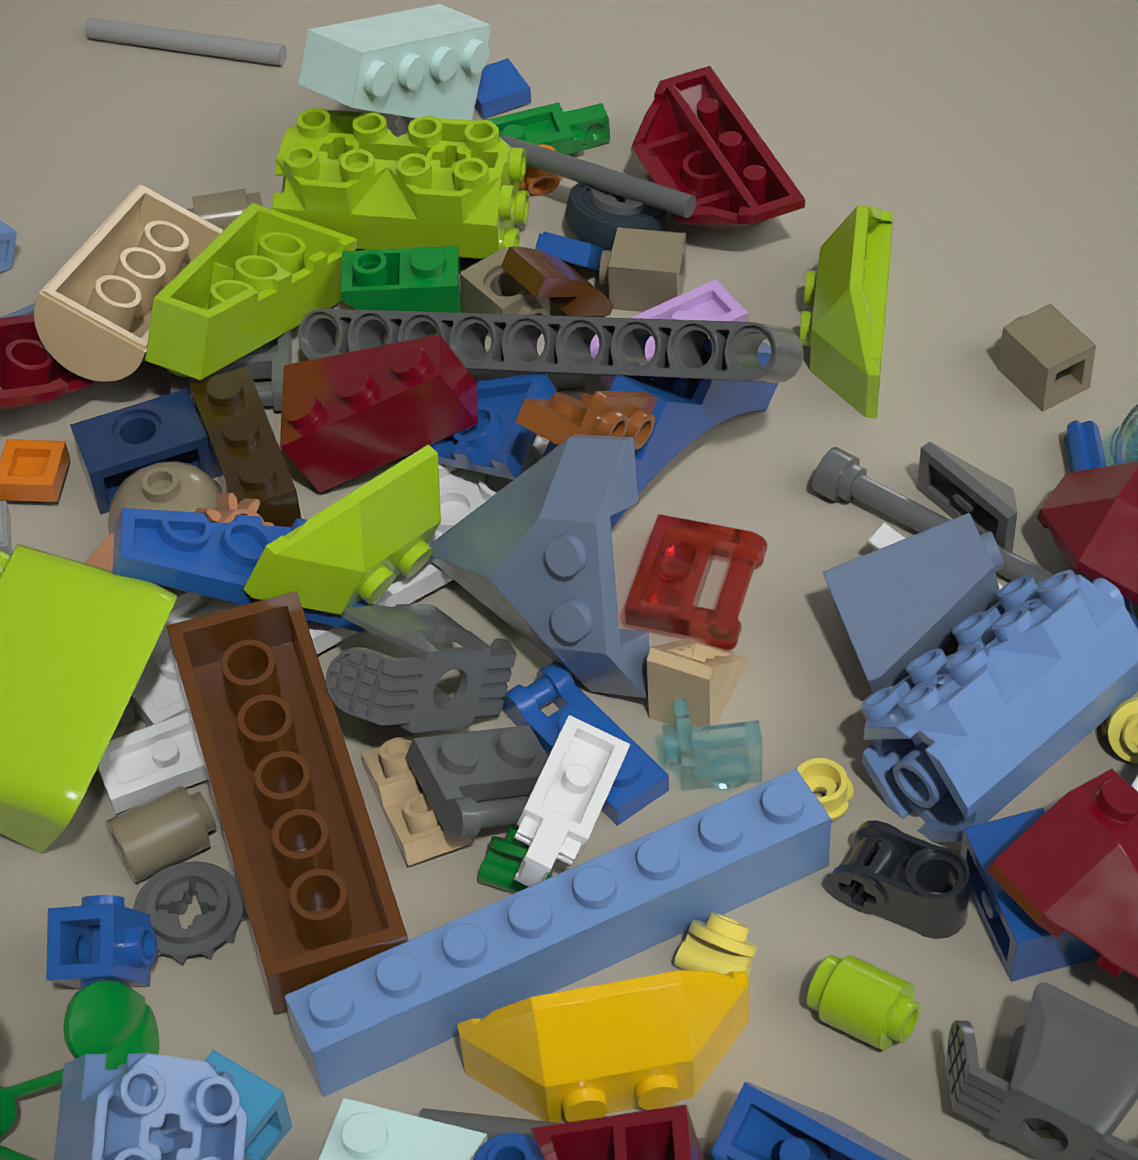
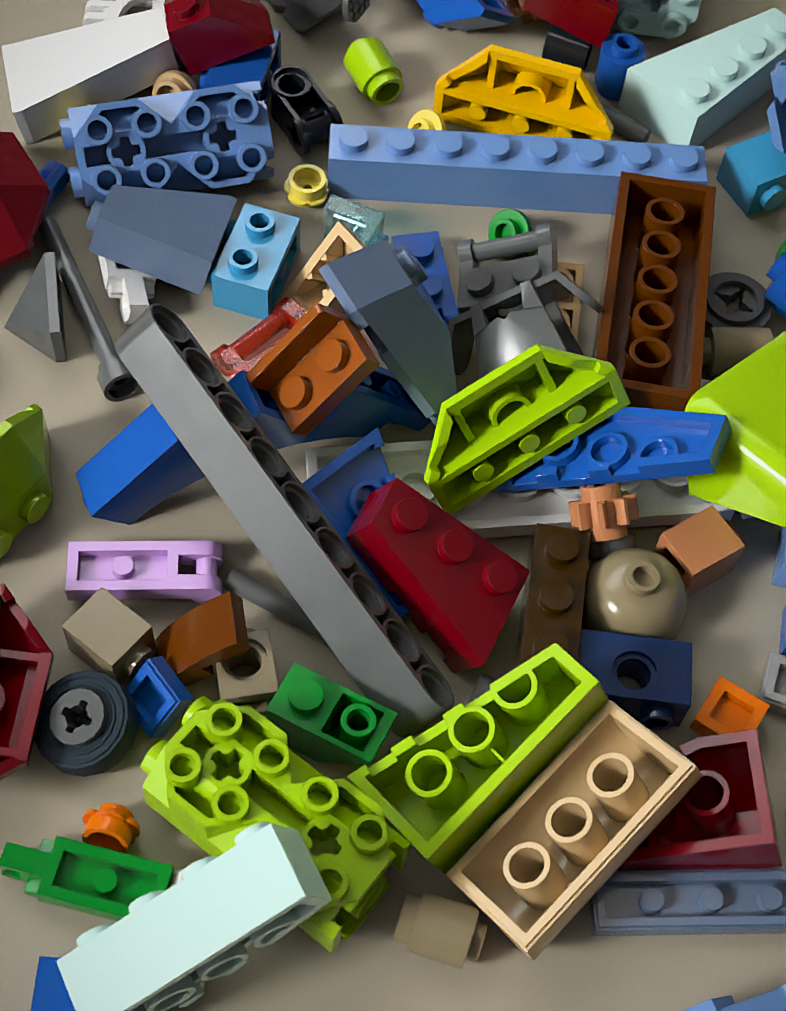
camera: 160 degrees left, 10 degrees up
(567, 798) = (474, 215): white hinge -> none
(606, 179) = (90, 737): dark grey bar -> none
(800, 655) = (254, 261): none -> dark azure brick

